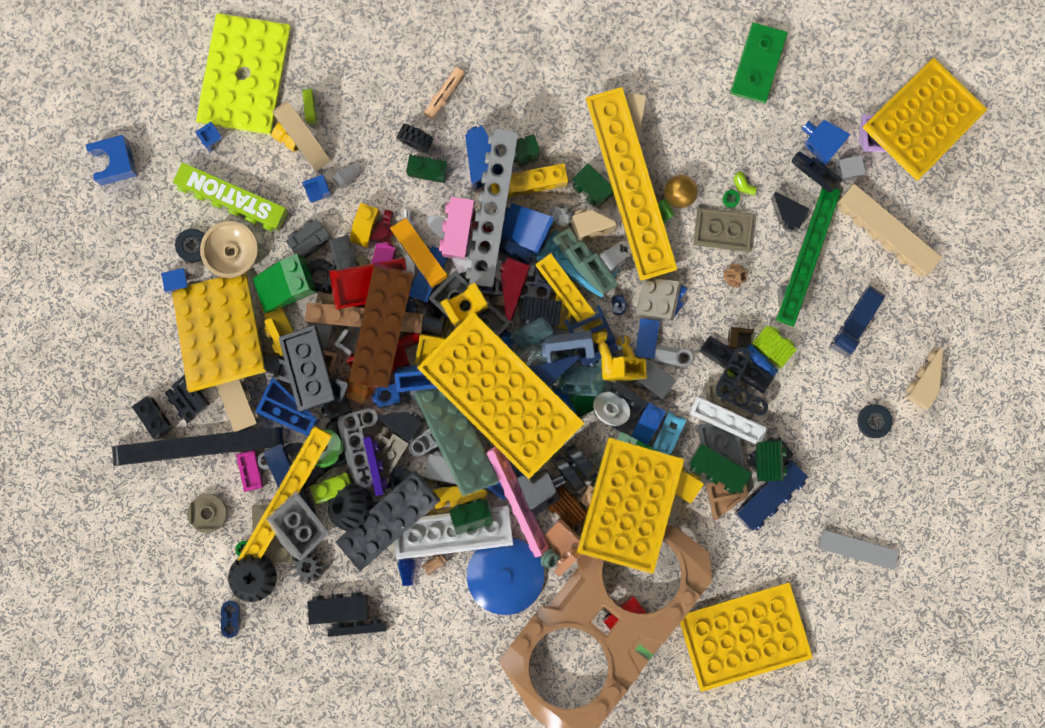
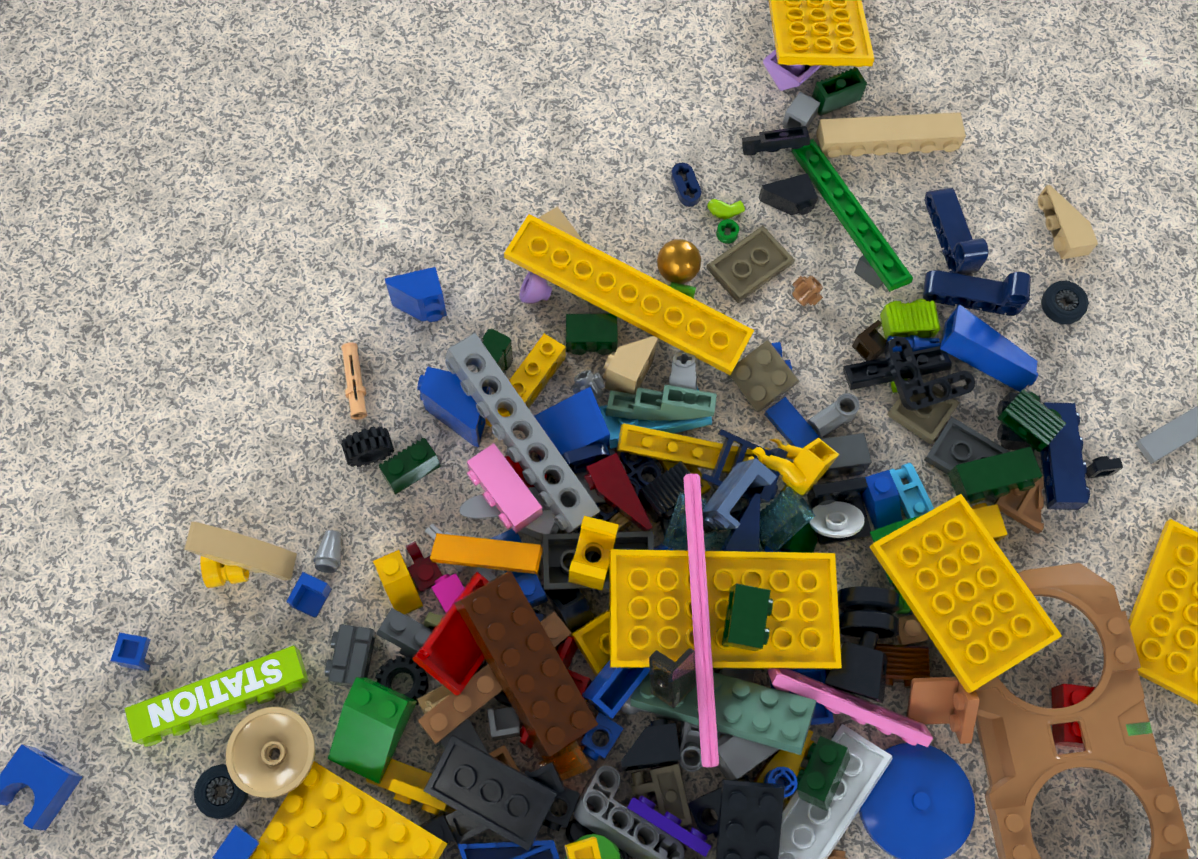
camera: 50 degrees left, 15 degrees down
(246, 102) = (117, 595): neon yellow plate -> none
(309, 106) = (218, 517): lime beam -> none
(440, 404) = (671, 679): none -> clear smoke panel
(447, 498) = (776, 777): none -> blue wheel
(483, 386) = (701, 622): none -> bright pink axle
(503, 410) = (747, 617): none -> dark green brick
(522, 77) = (418, 294): none -> blue slope
(549, 558) = (940, 734): sand green plate -> none
(586, 132) = (534, 289): none -> lavender brick
(619, 305) = (732, 418): dark blue piece -> none
(728, 420) = (949, 424): white tile -> none
(741, 150) = (681, 185): none -> dark blue beam
(758, 63) = (626, 98): green container -> none
(786, 522) = (1103, 467): none -> black plate
(795, 403) = (987, 350): none -> blue slope
(824, 140) = (753, 110): blue torso -> none
(828, 366) = (979, 293): none -> dark blue beam
(886, 176) = (839, 90): none -> dark green brick

